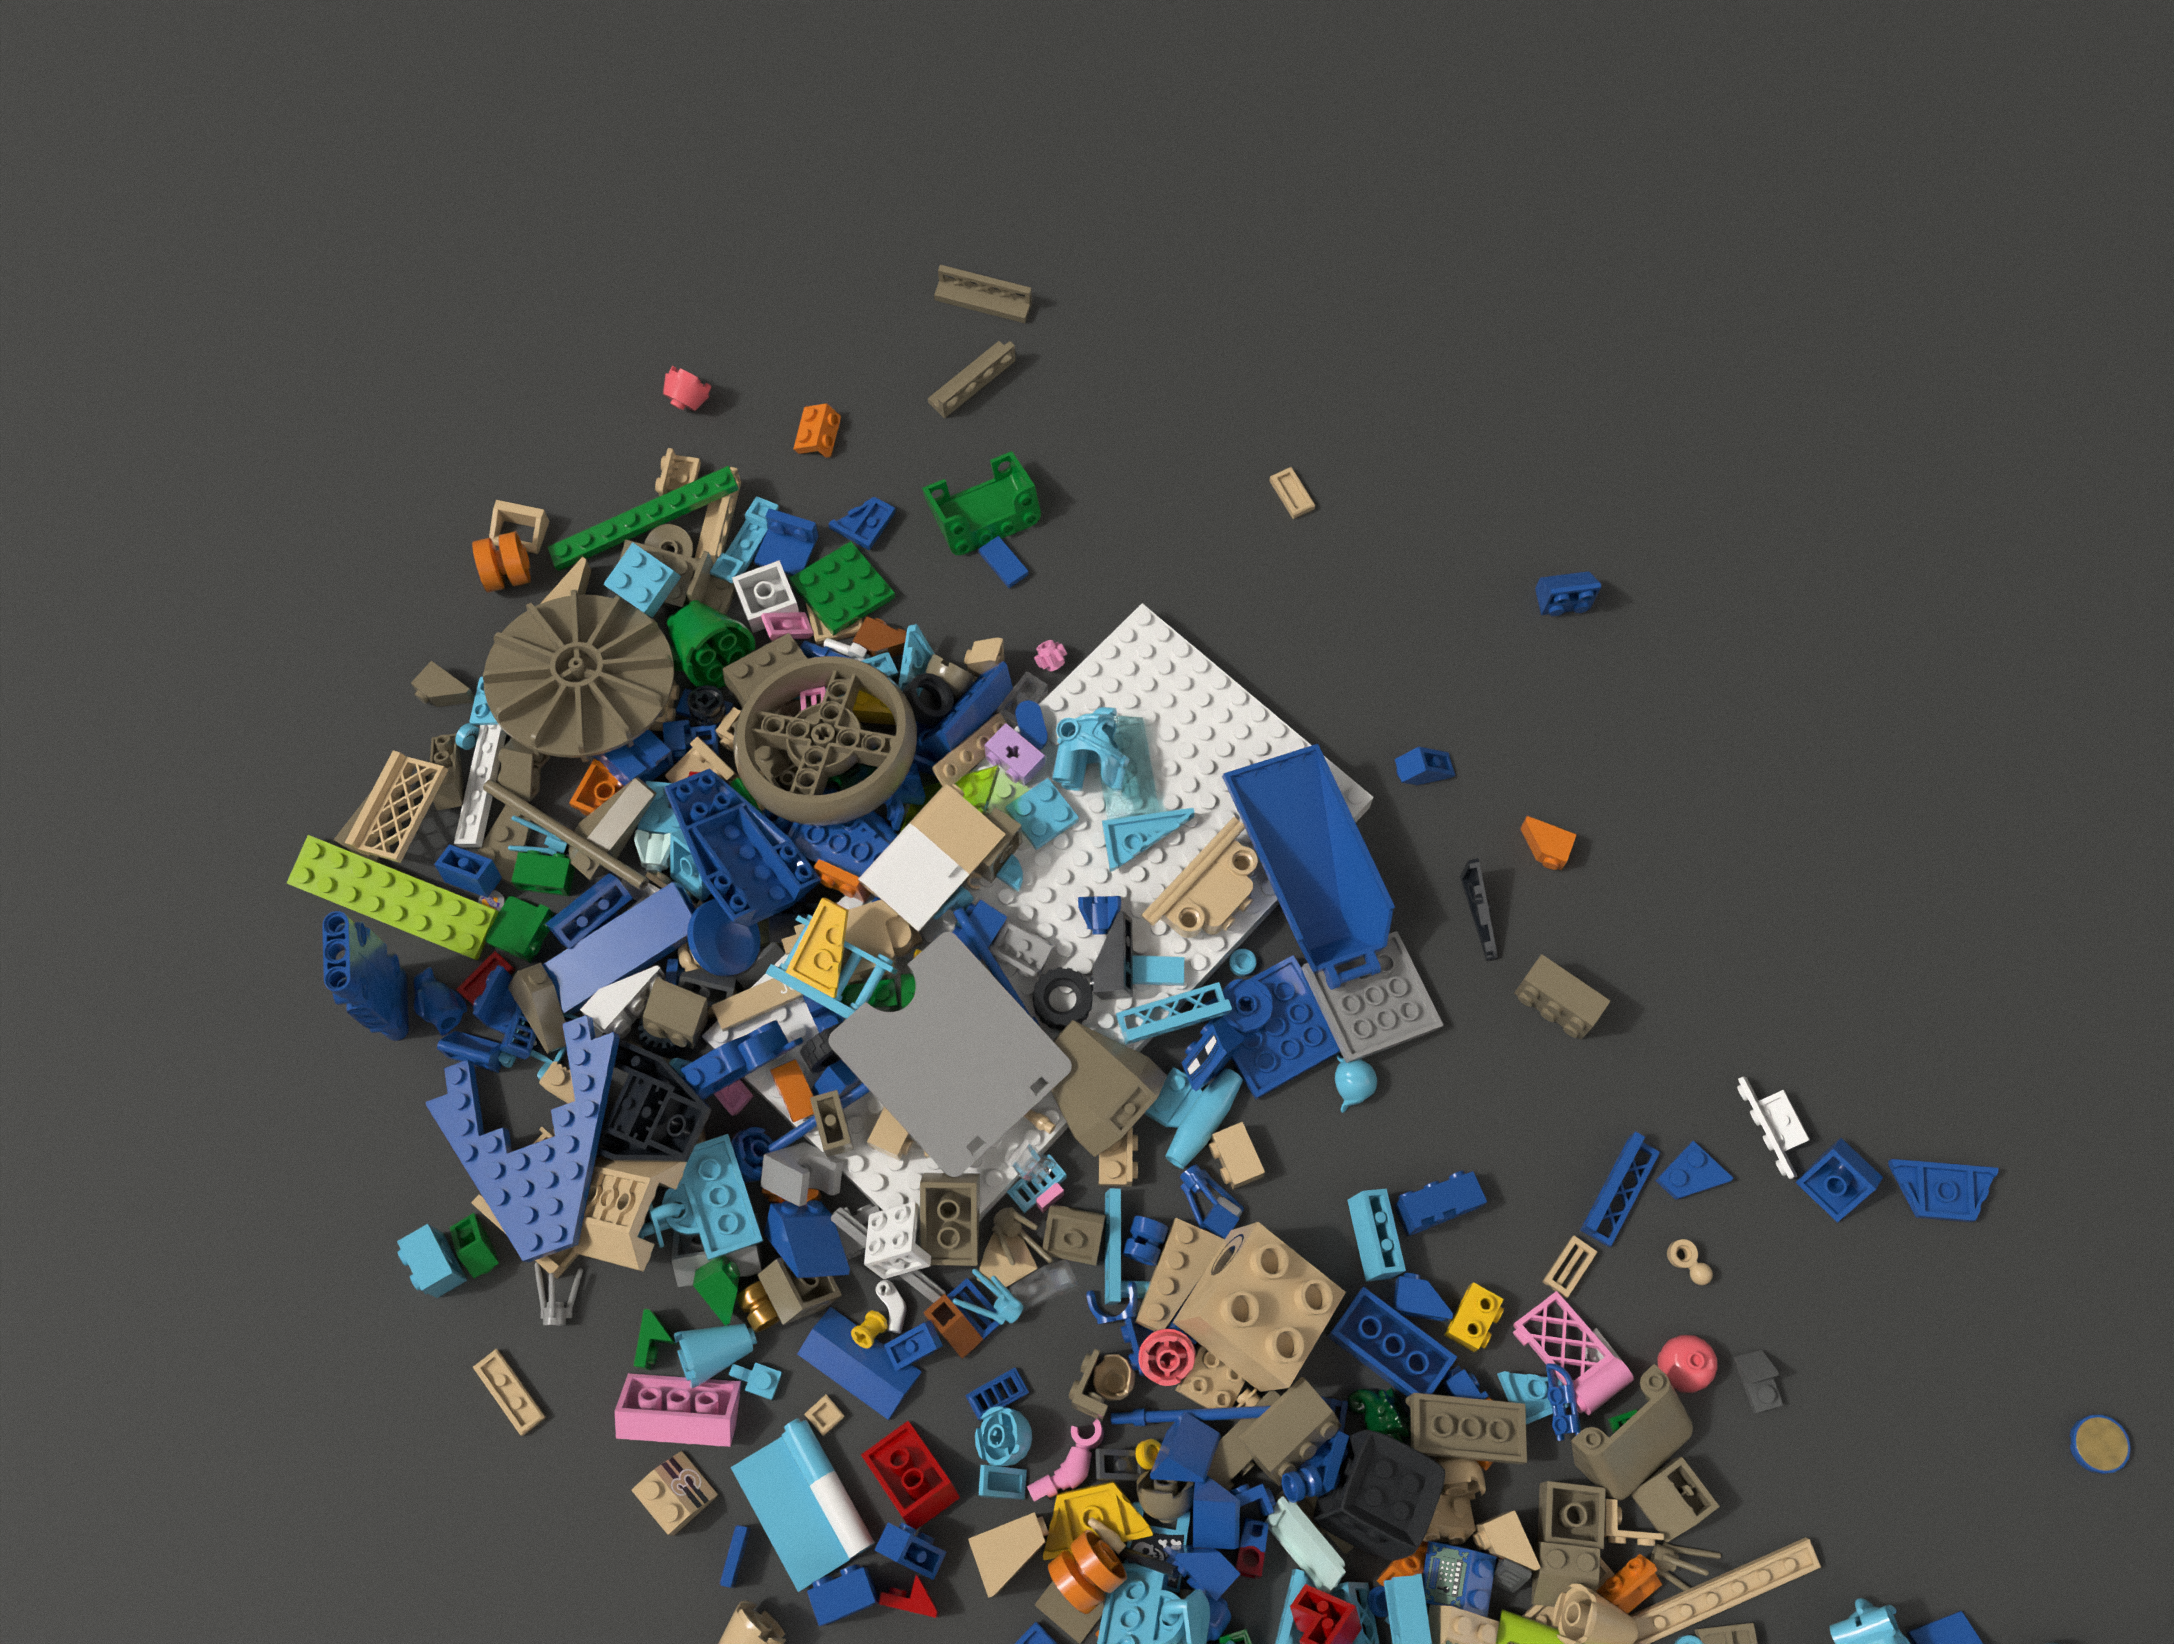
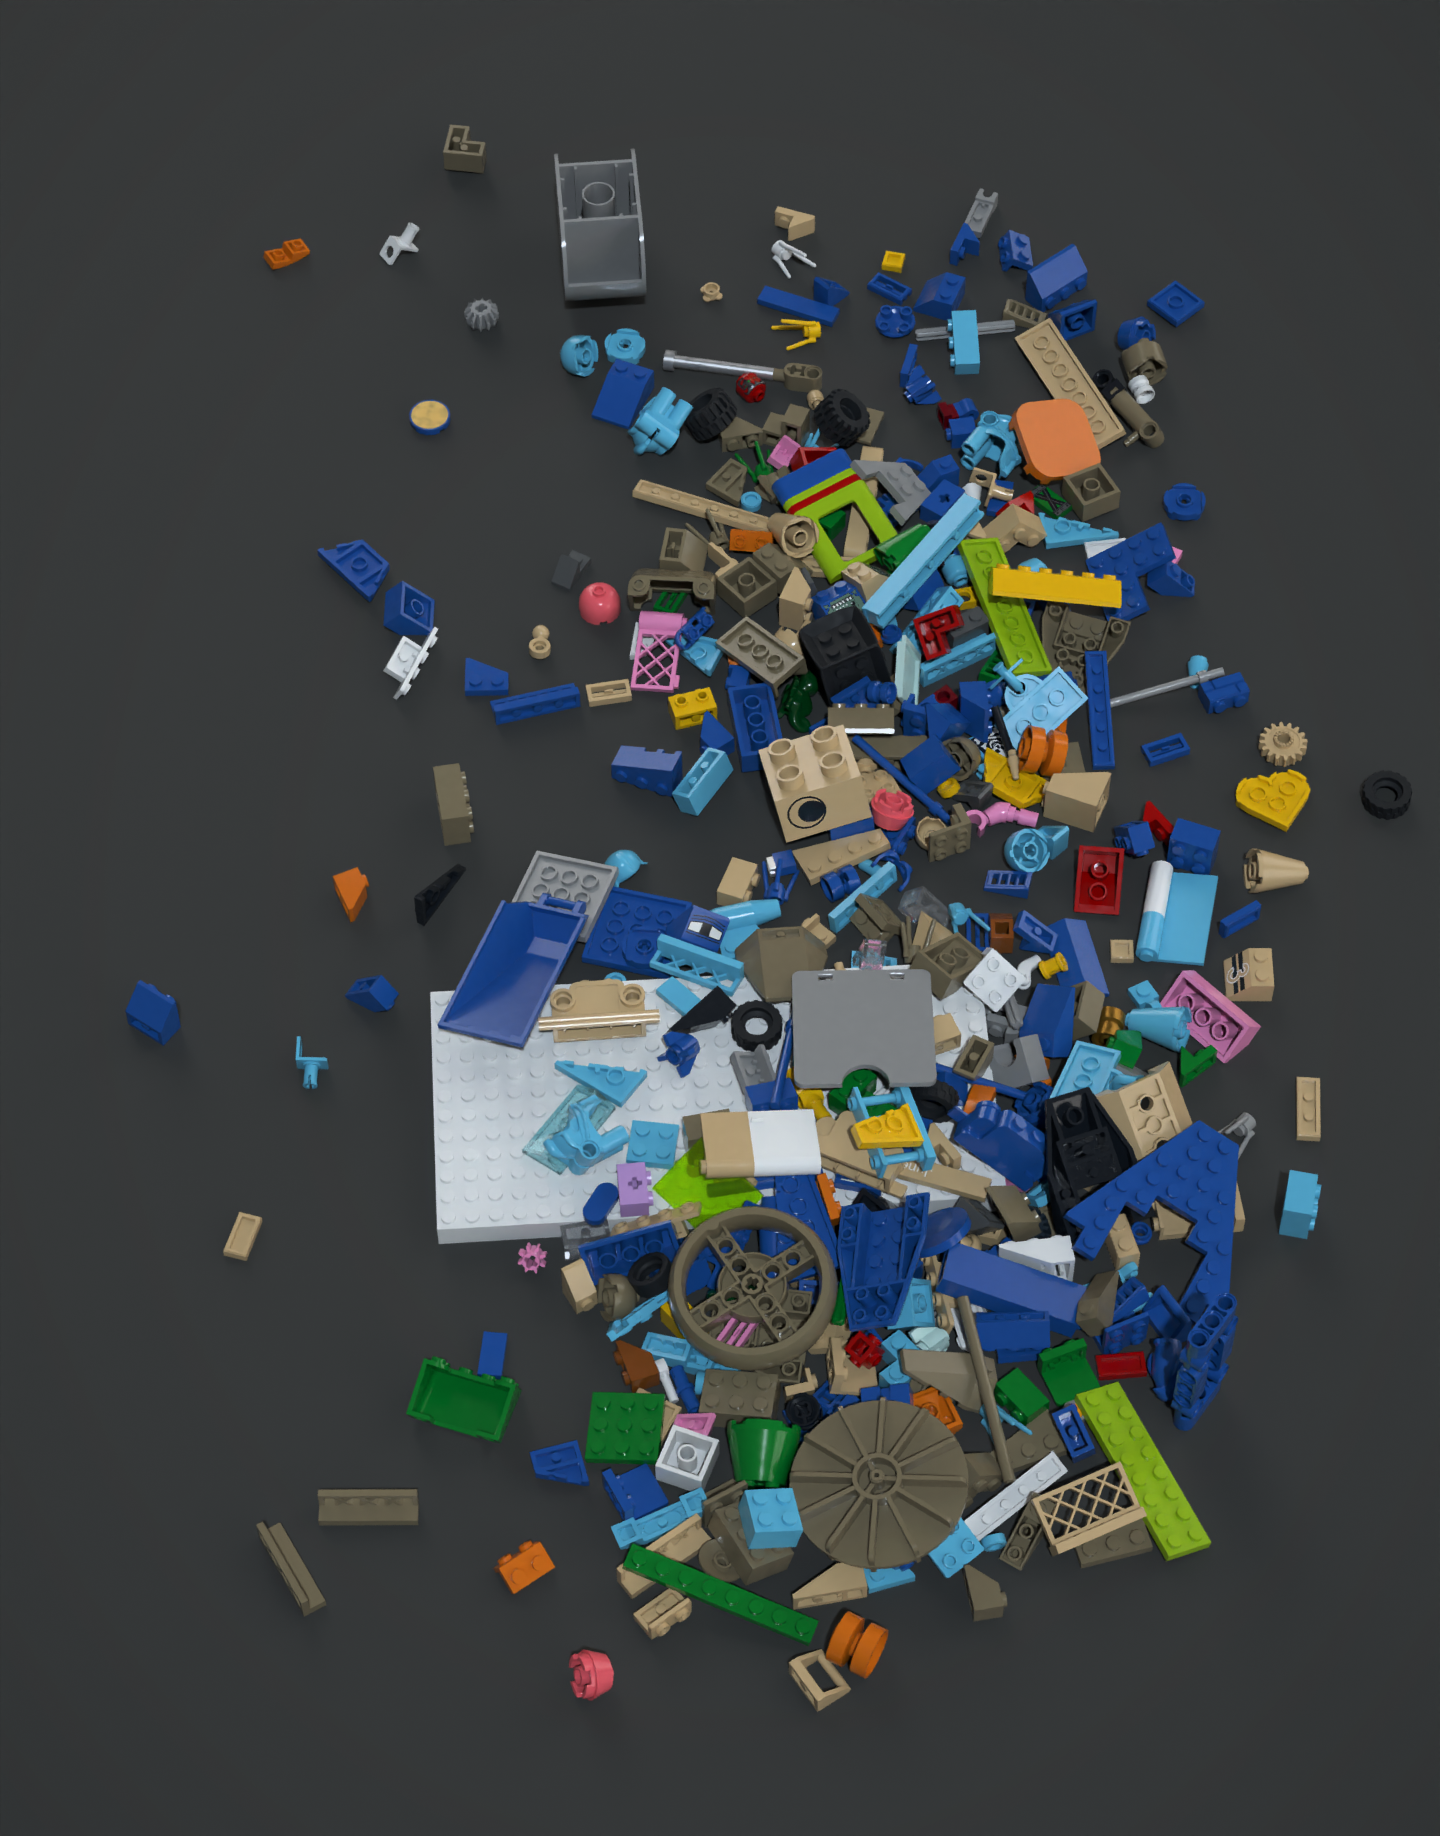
camera: 135 degrees left, 15 degrees down
(473, 1246) = (1263, 1203): green slope -> none
(796, 1020) = (943, 1148): none -> tan slope
(1399, 664) = (310, 1065): none -> medium azure bracket

